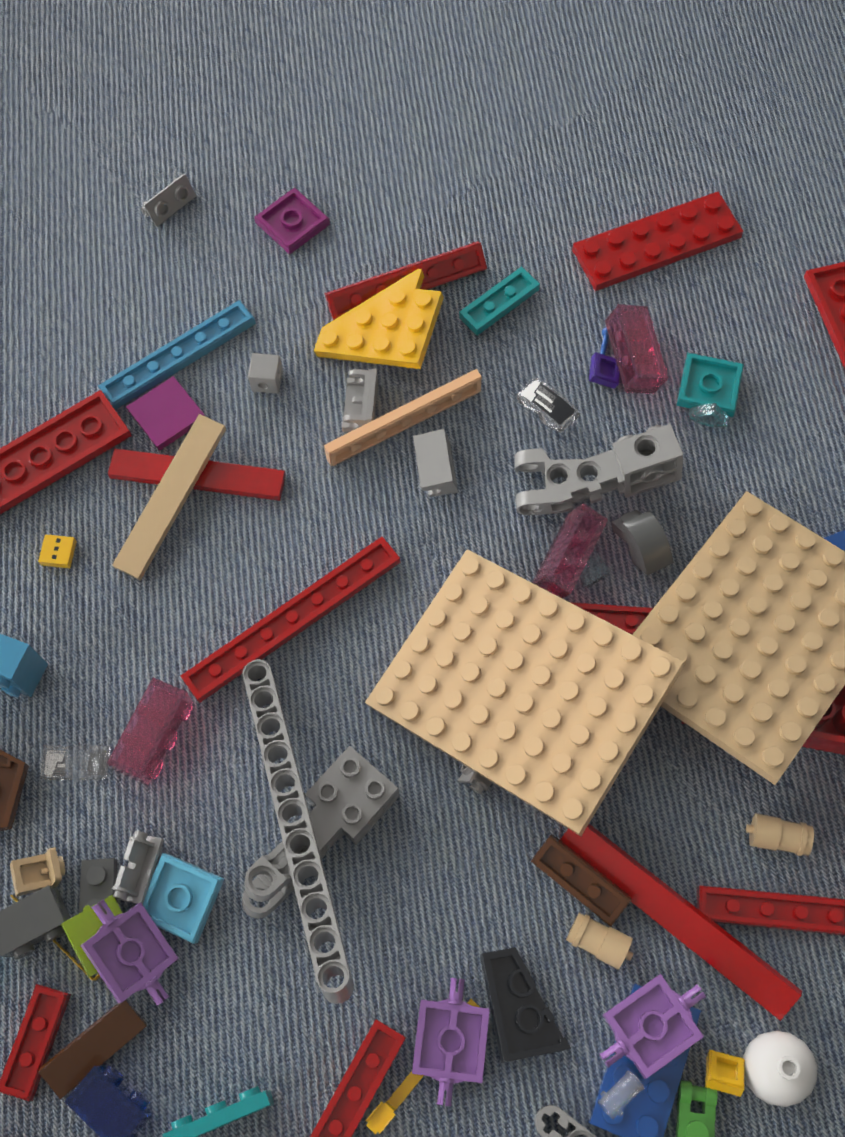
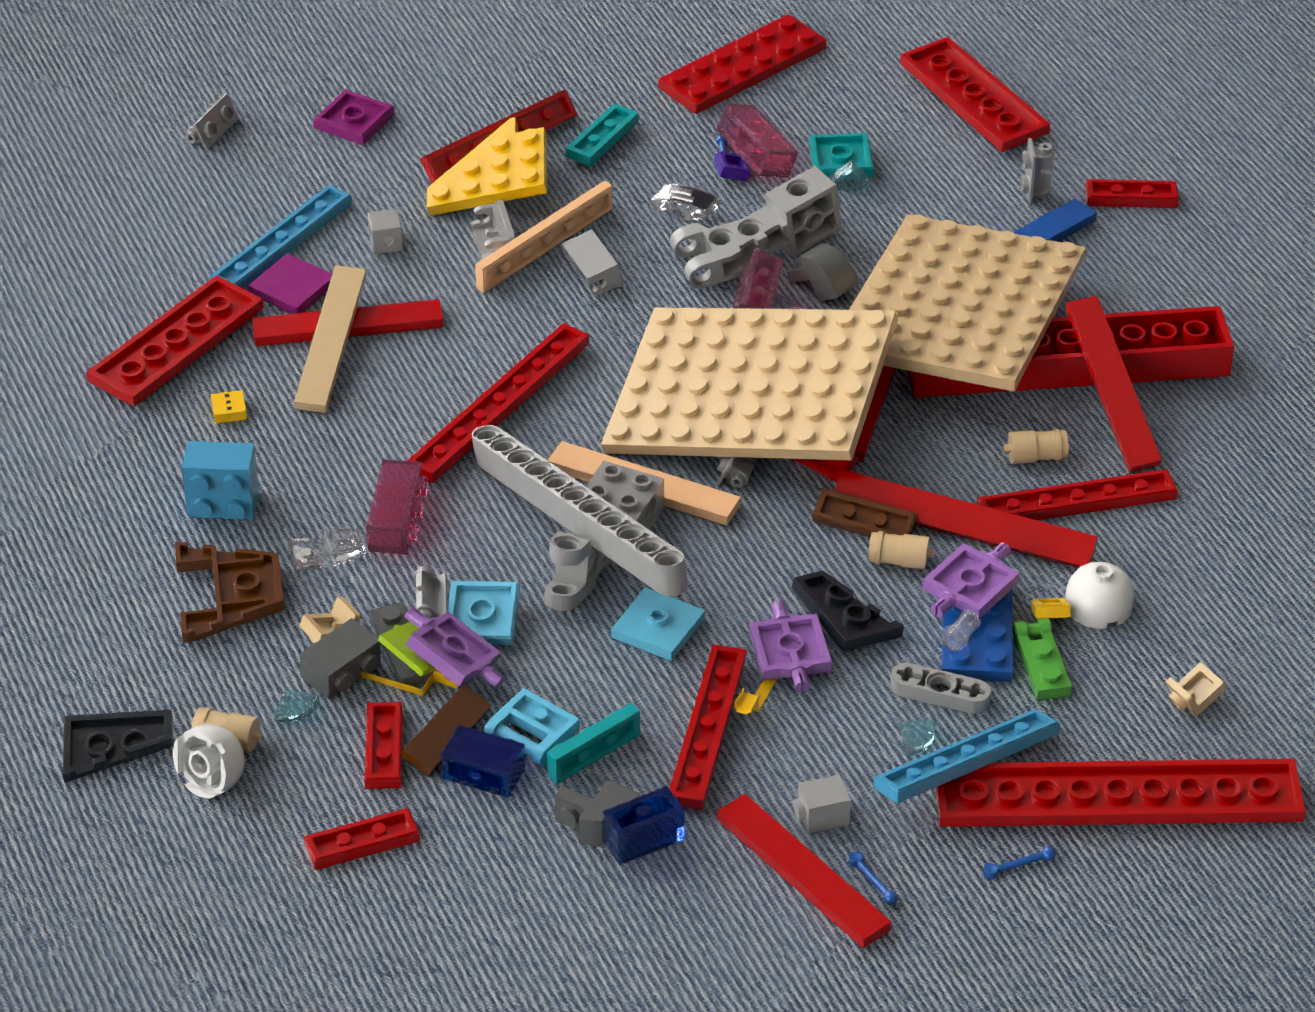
camera: 20 degrees left, 25 degrees down
(183, 1064) = (537, 718): none -> medium azure plate
(361, 956) = (658, 624): none -> medium azure plate
(413, 783) = (678, 492): none -> light nougat tile

